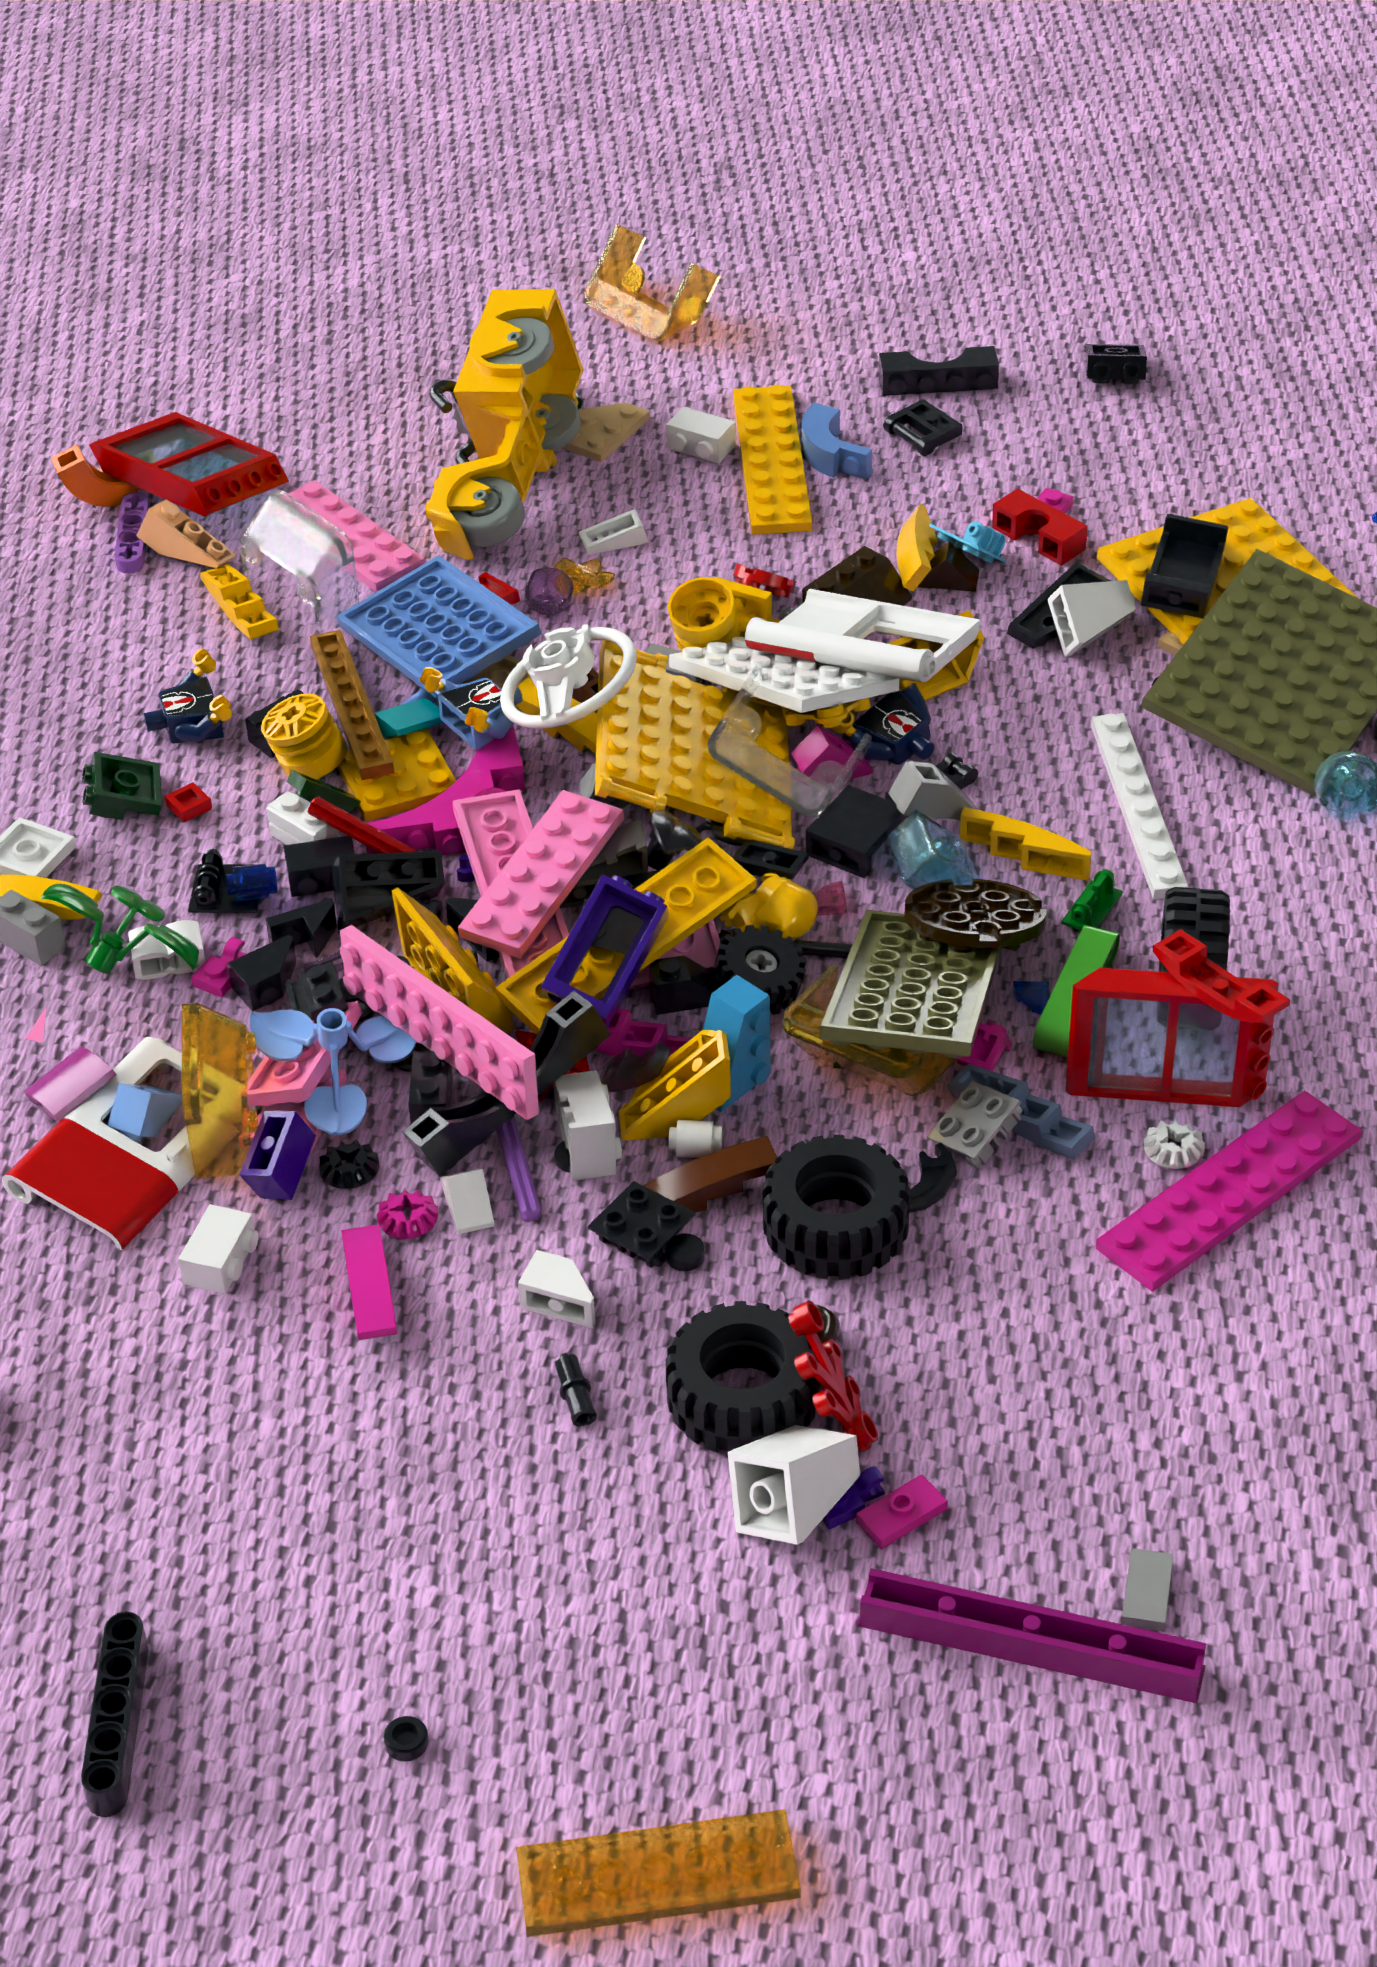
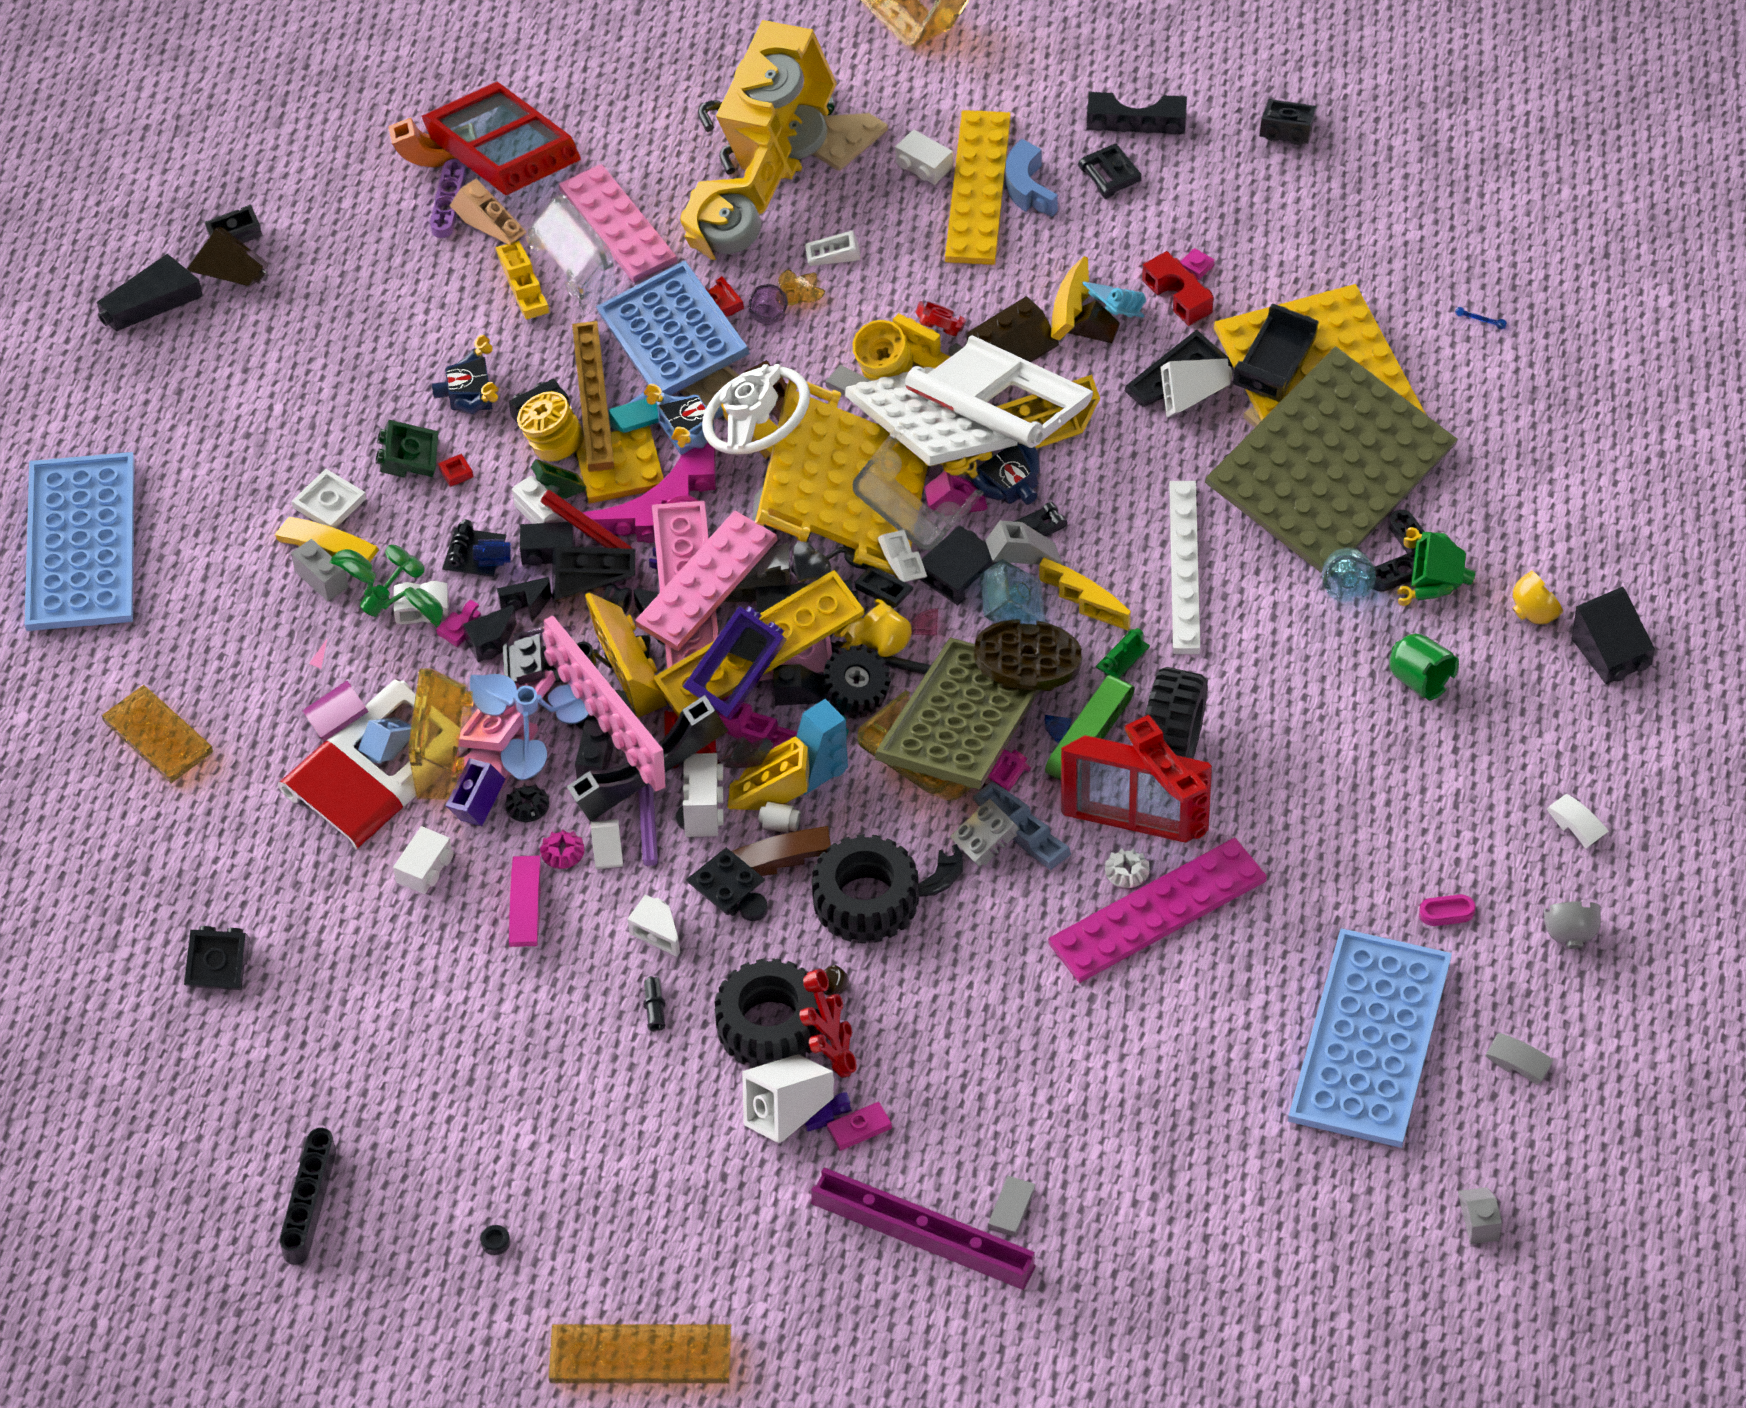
camera: 10 degrees right, 10 degrees up
(788, 829) = (899, 555): none -> white slope

